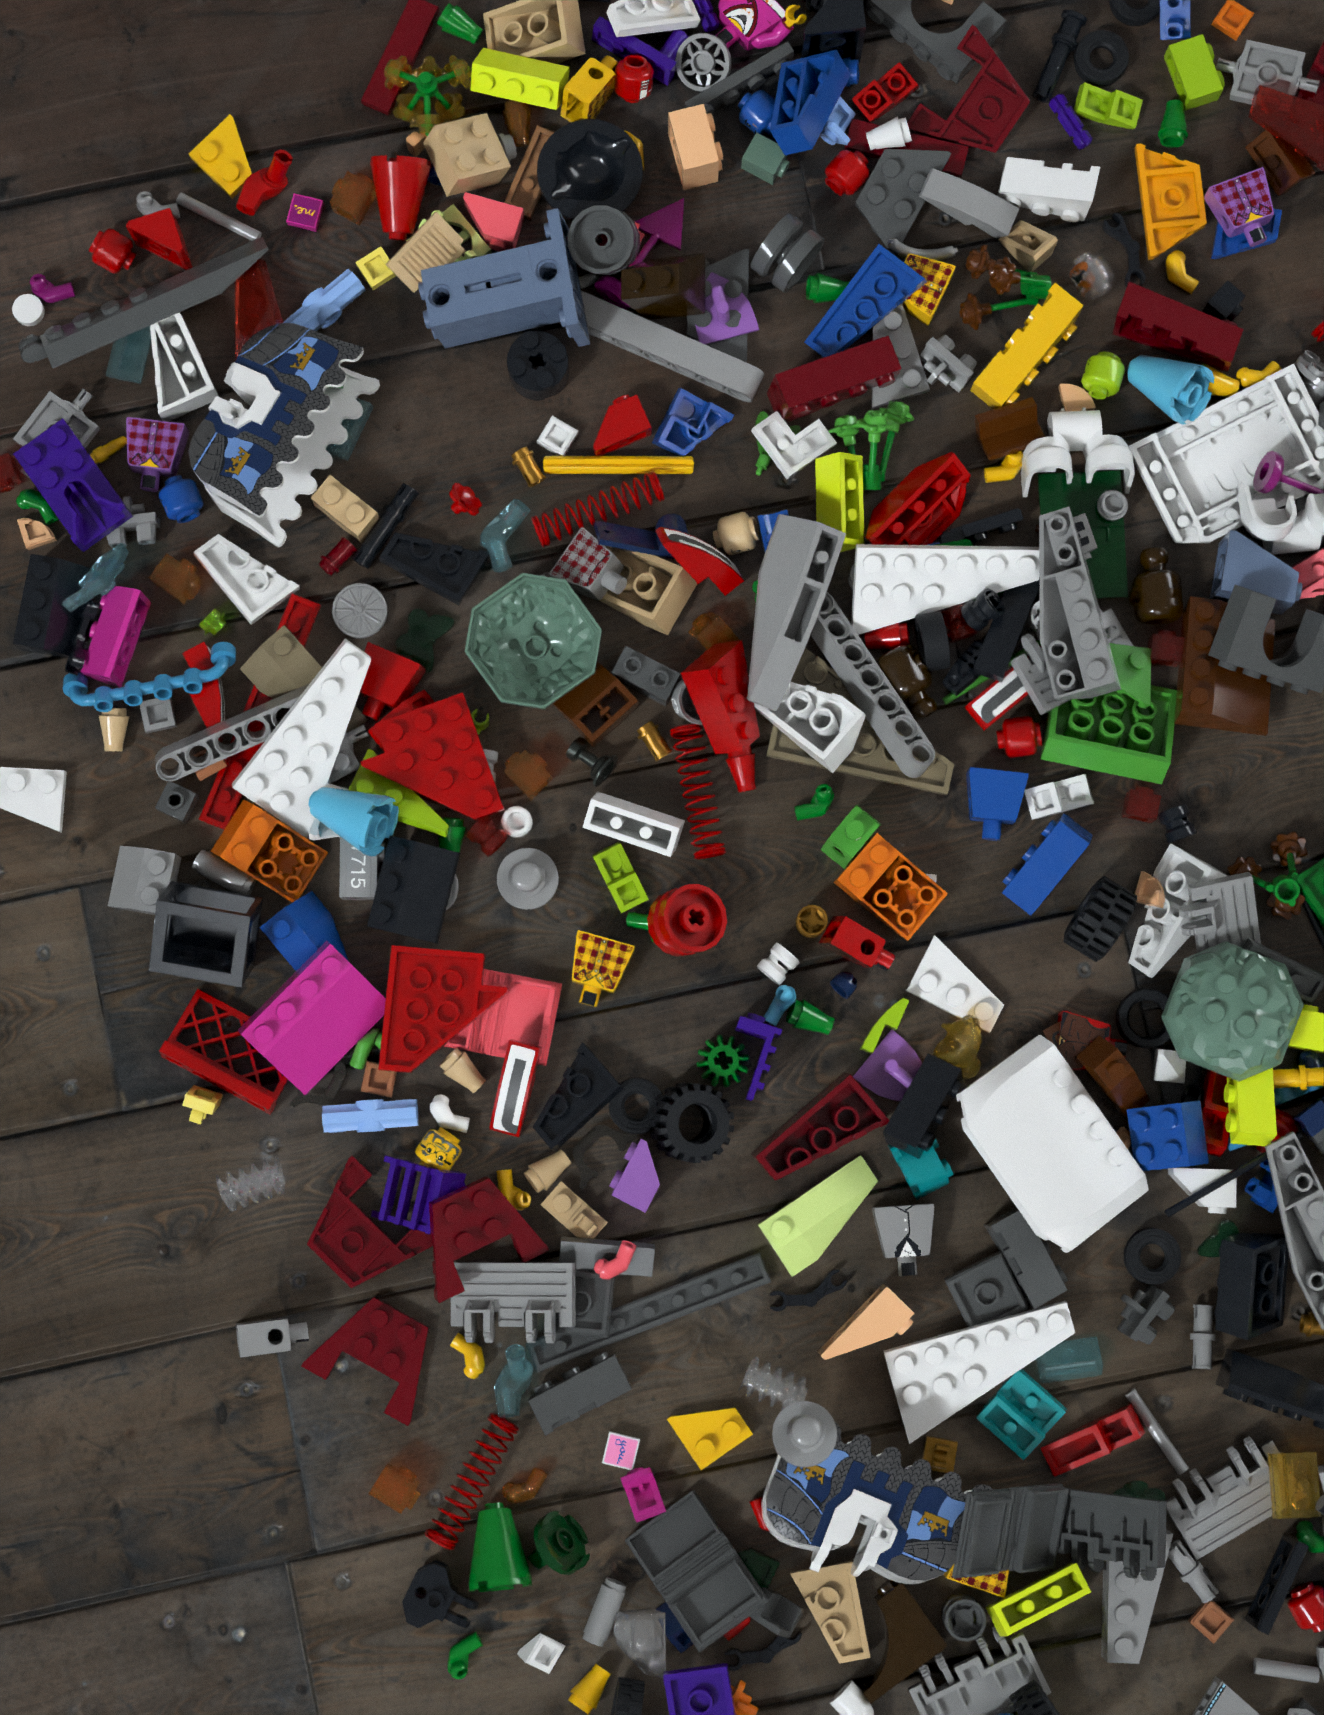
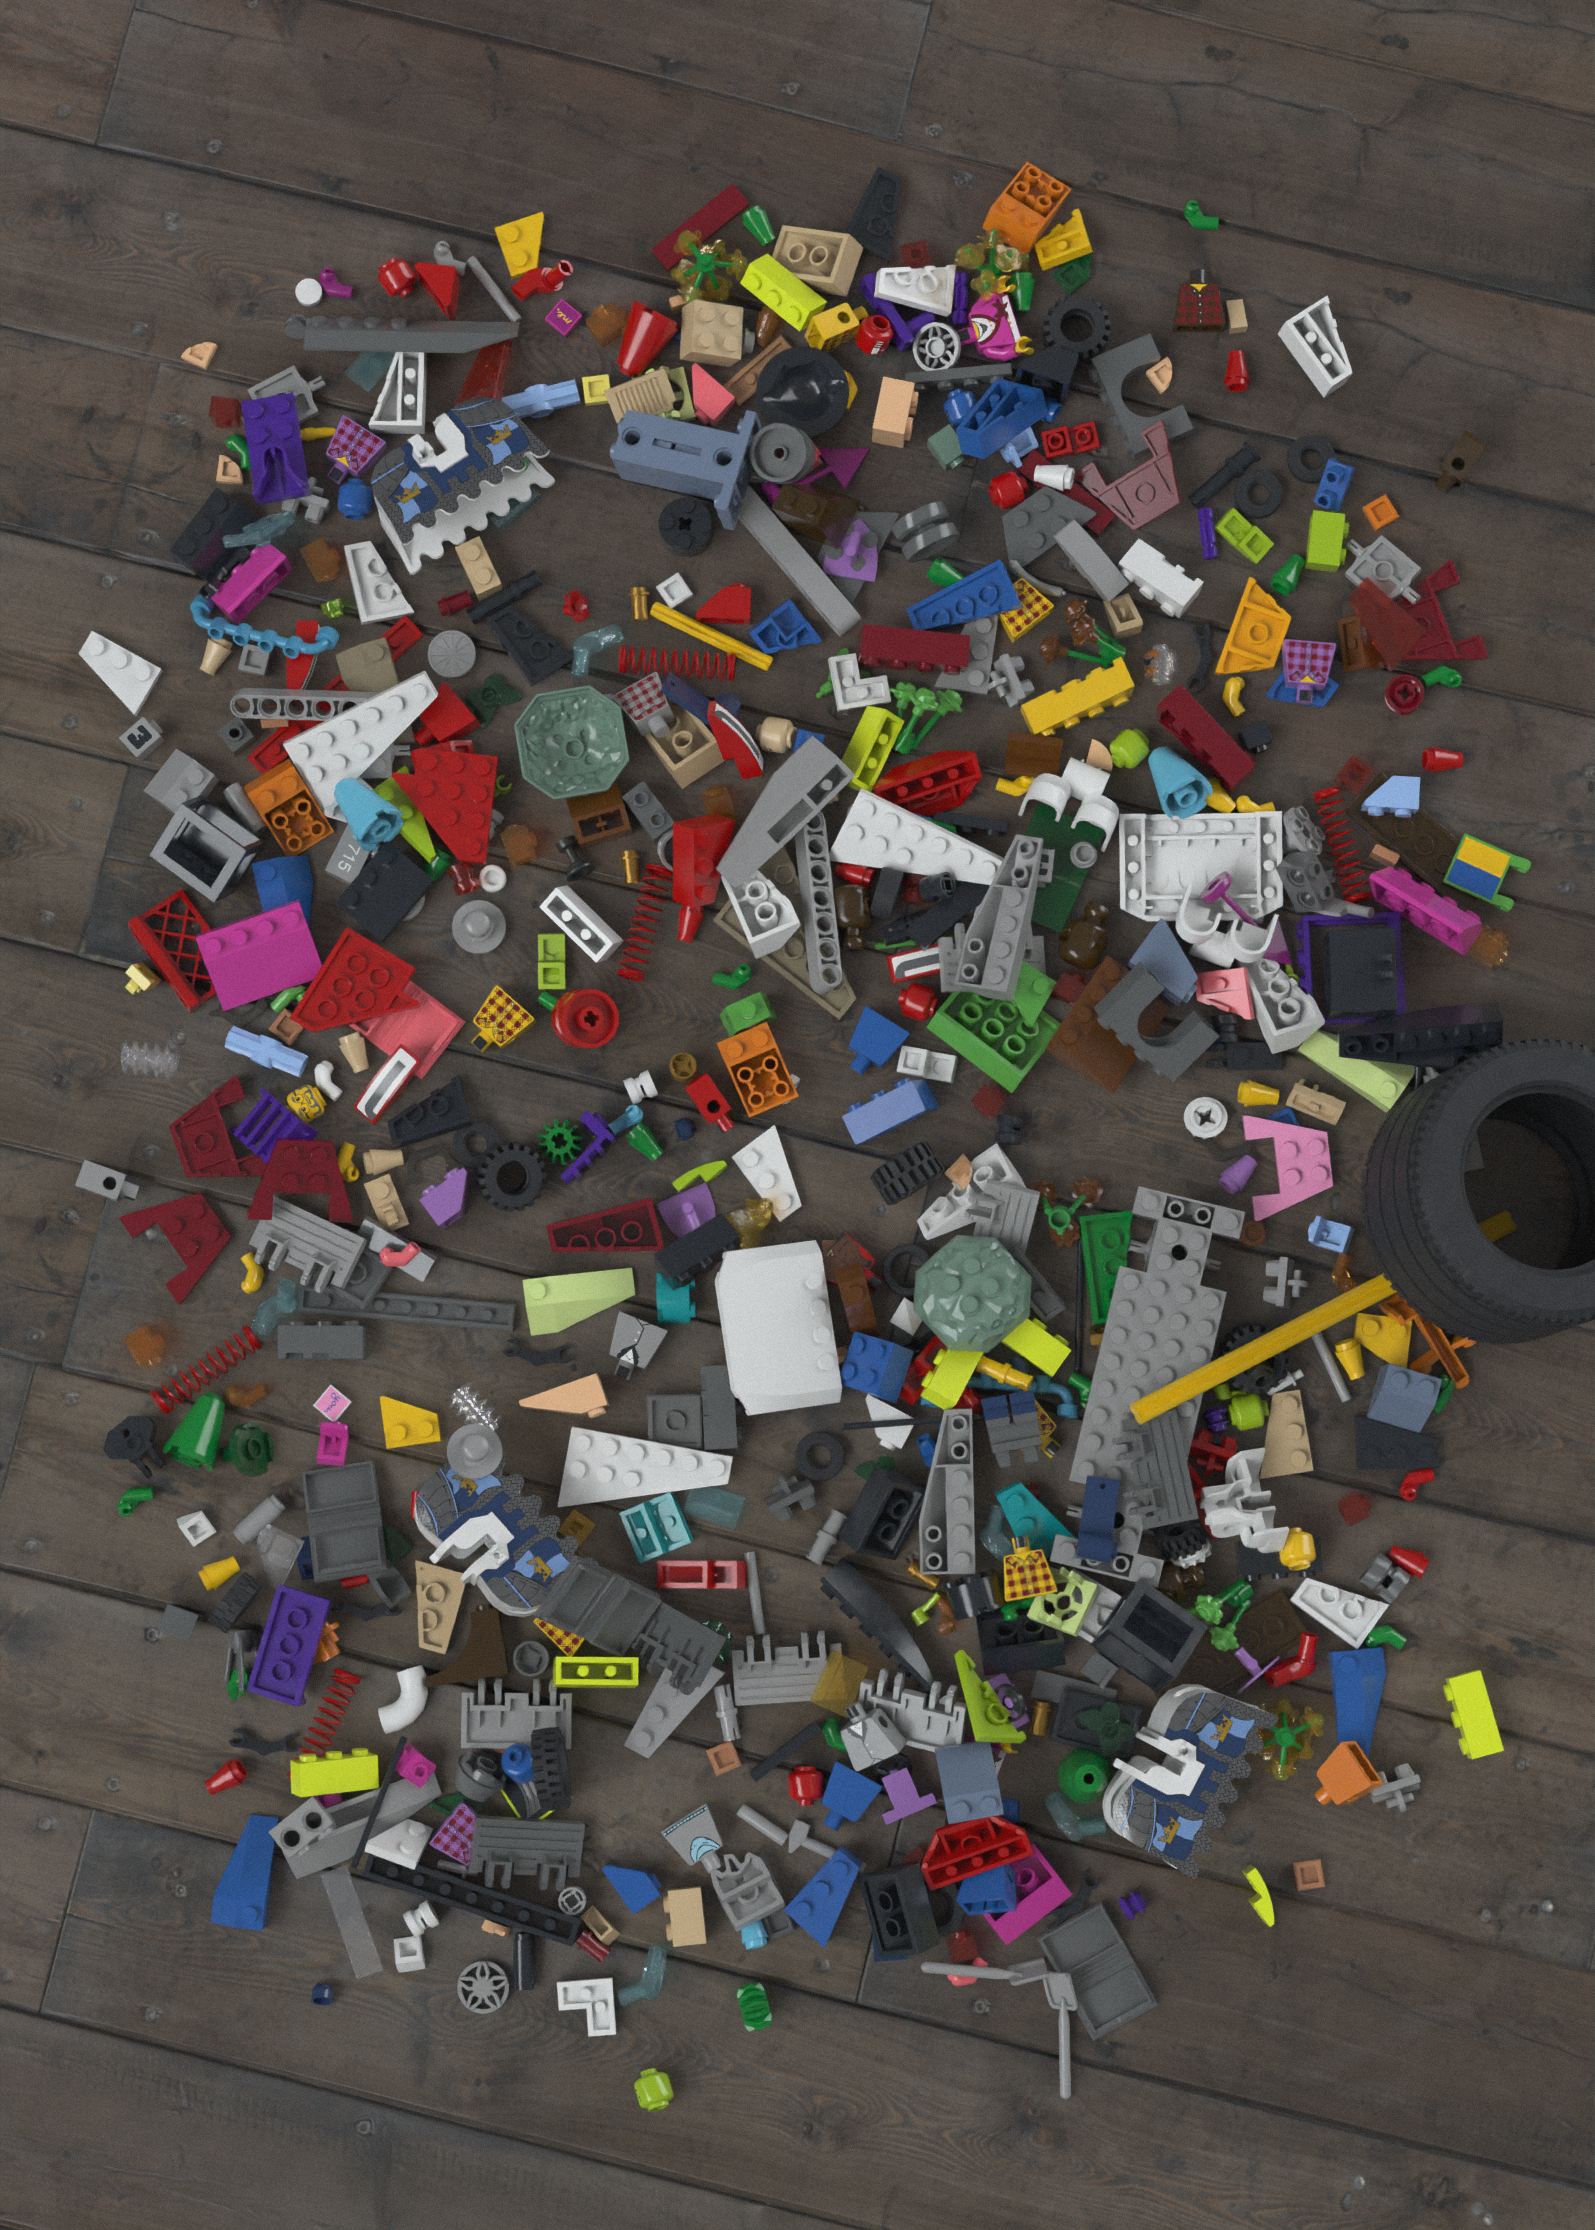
camera: 30 degrees right, 0 degrees up
(80, 851) = (142, 738): none -> light grey brick

